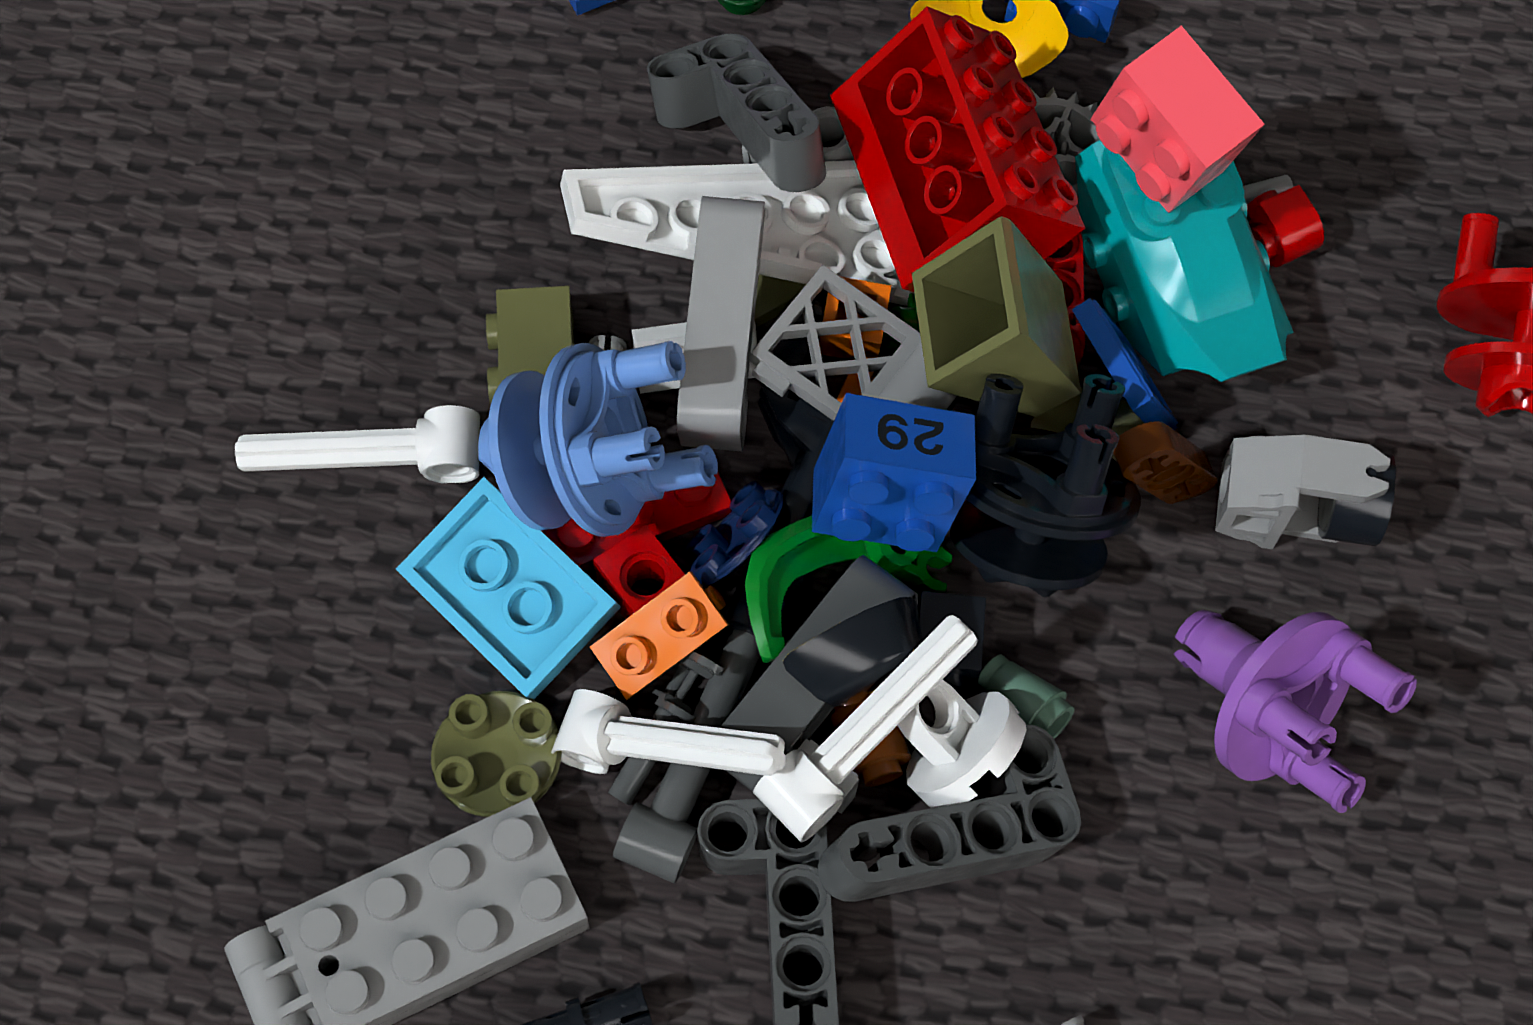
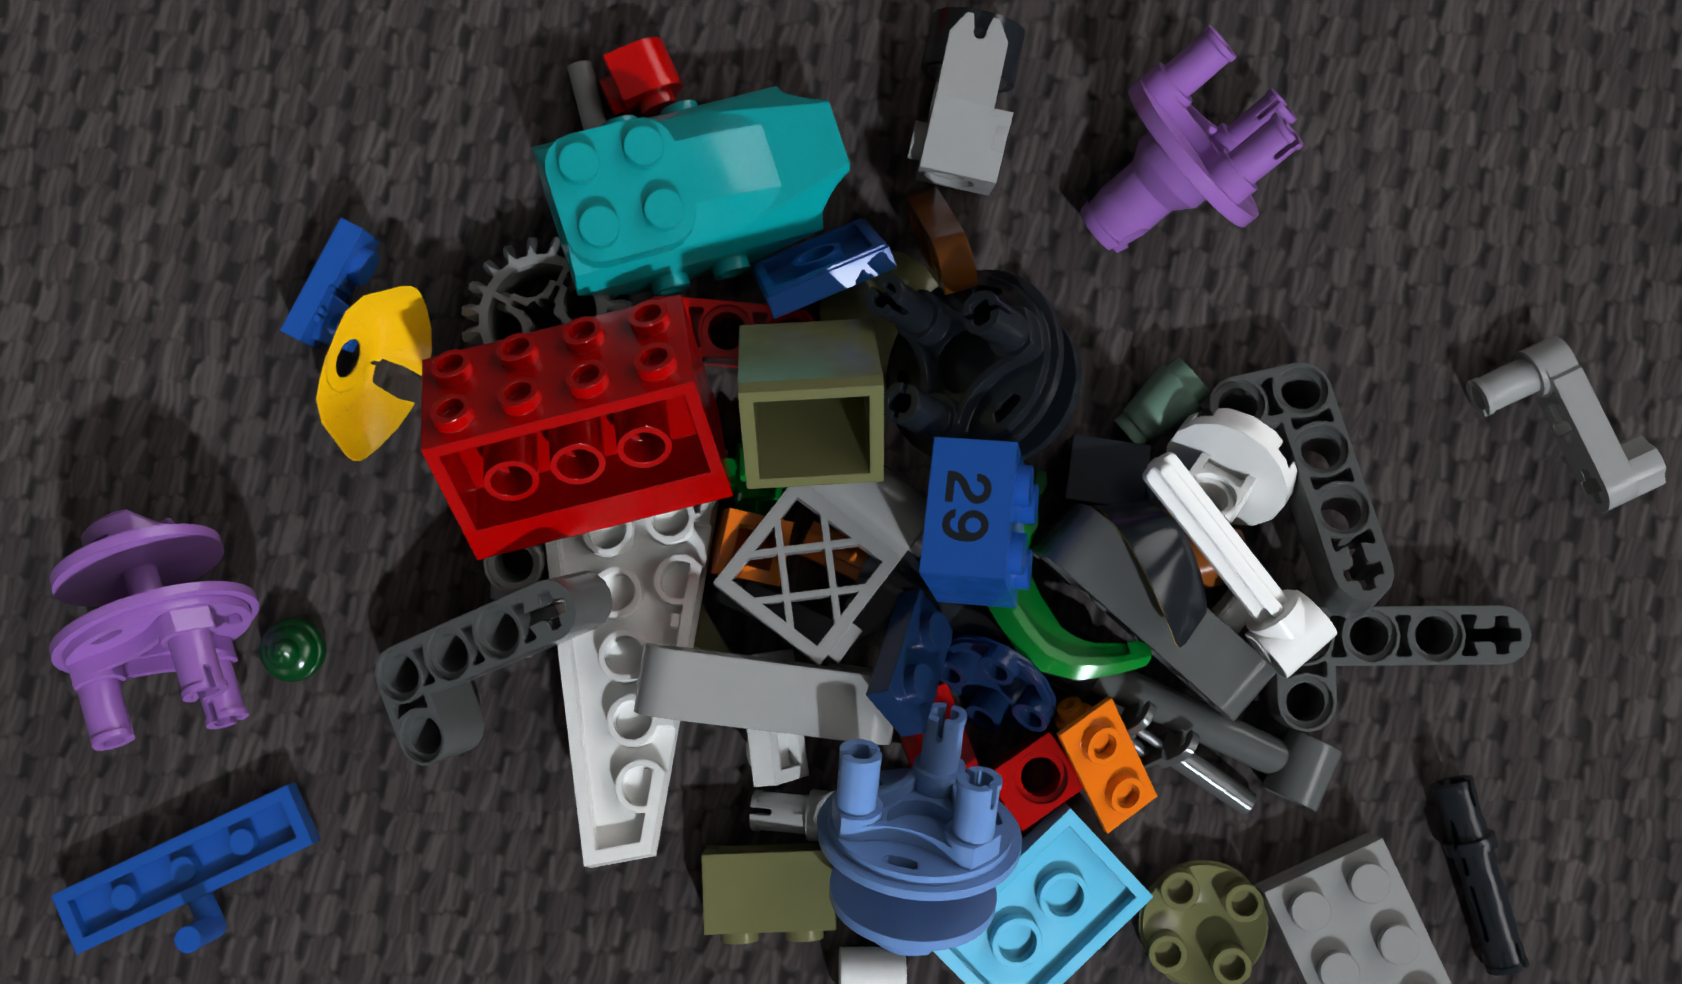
camera: 80 degrees left, 20 degrees up
(603, 733) = (1193, 820): white axle -> none
(755, 436) = (910, 662): none -> dark blue plate
(1174, 120) = (601, 185): coral brick -> none

